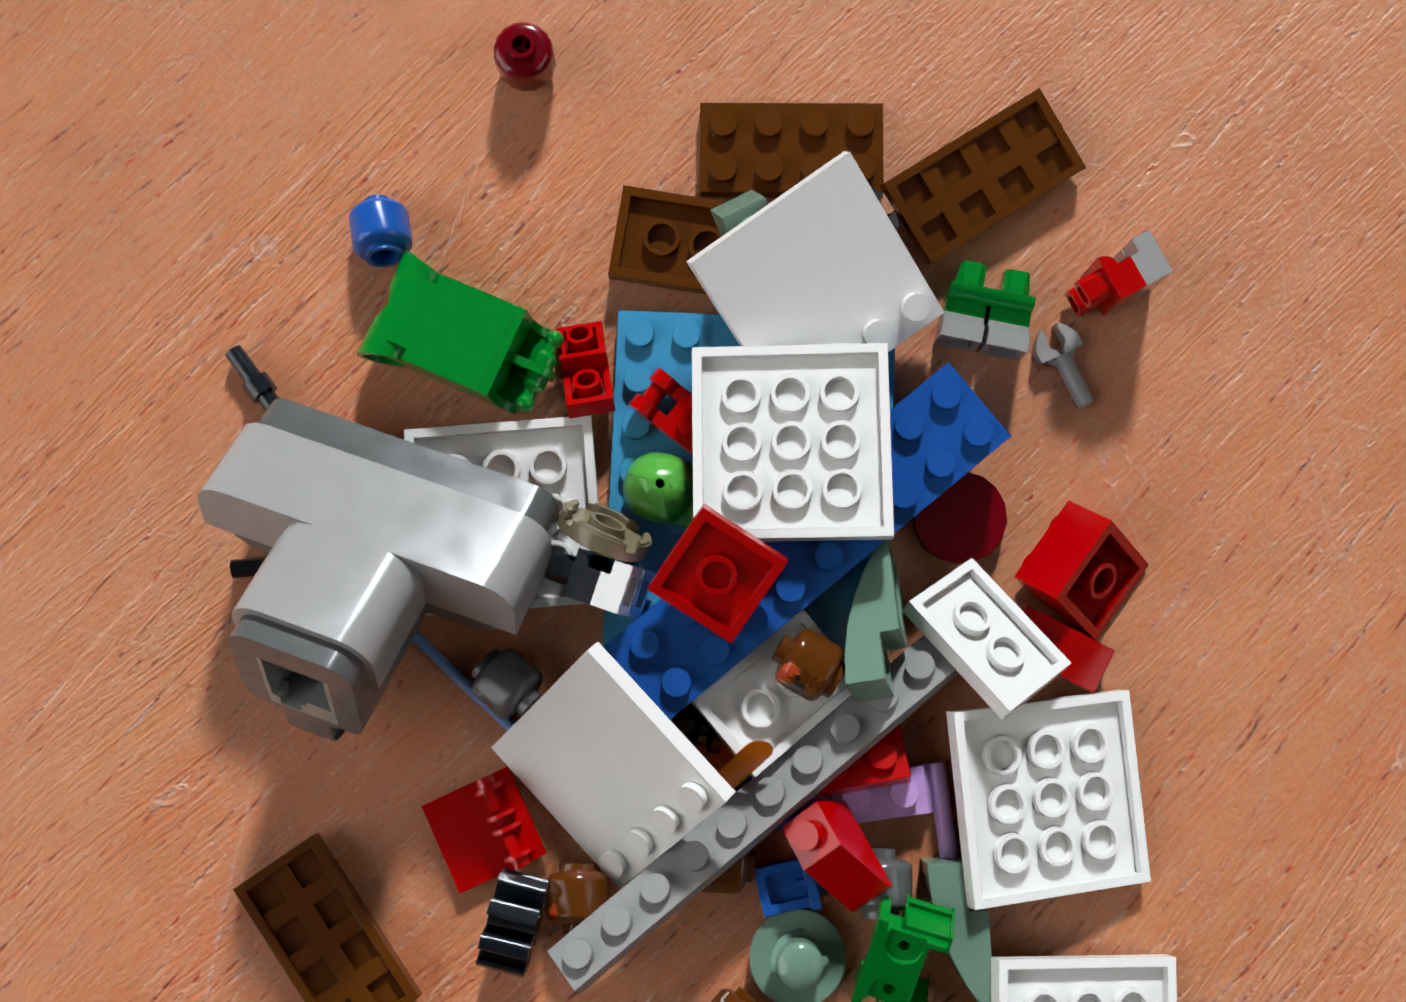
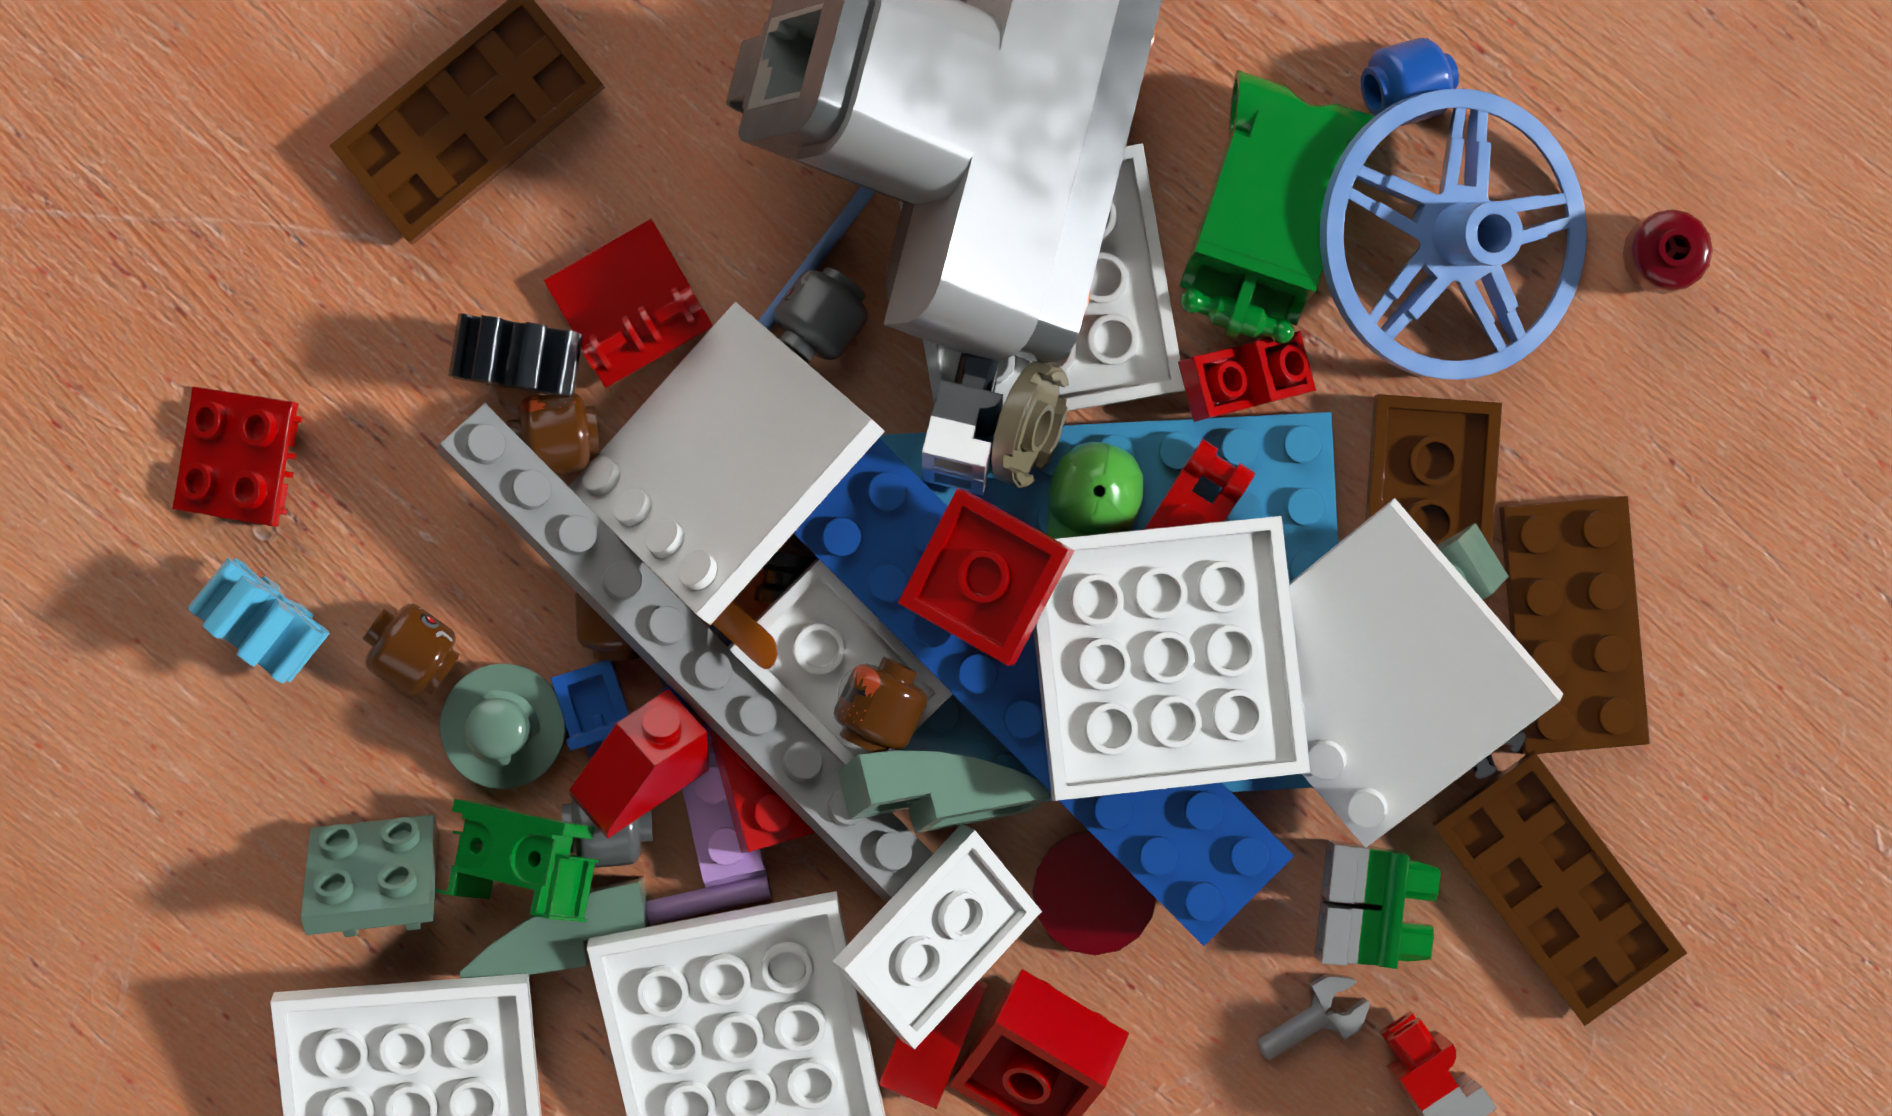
camera: 85 degrees right, 5 degrees up
(494, 203) = (1458, 234): none -> medium blue wheel

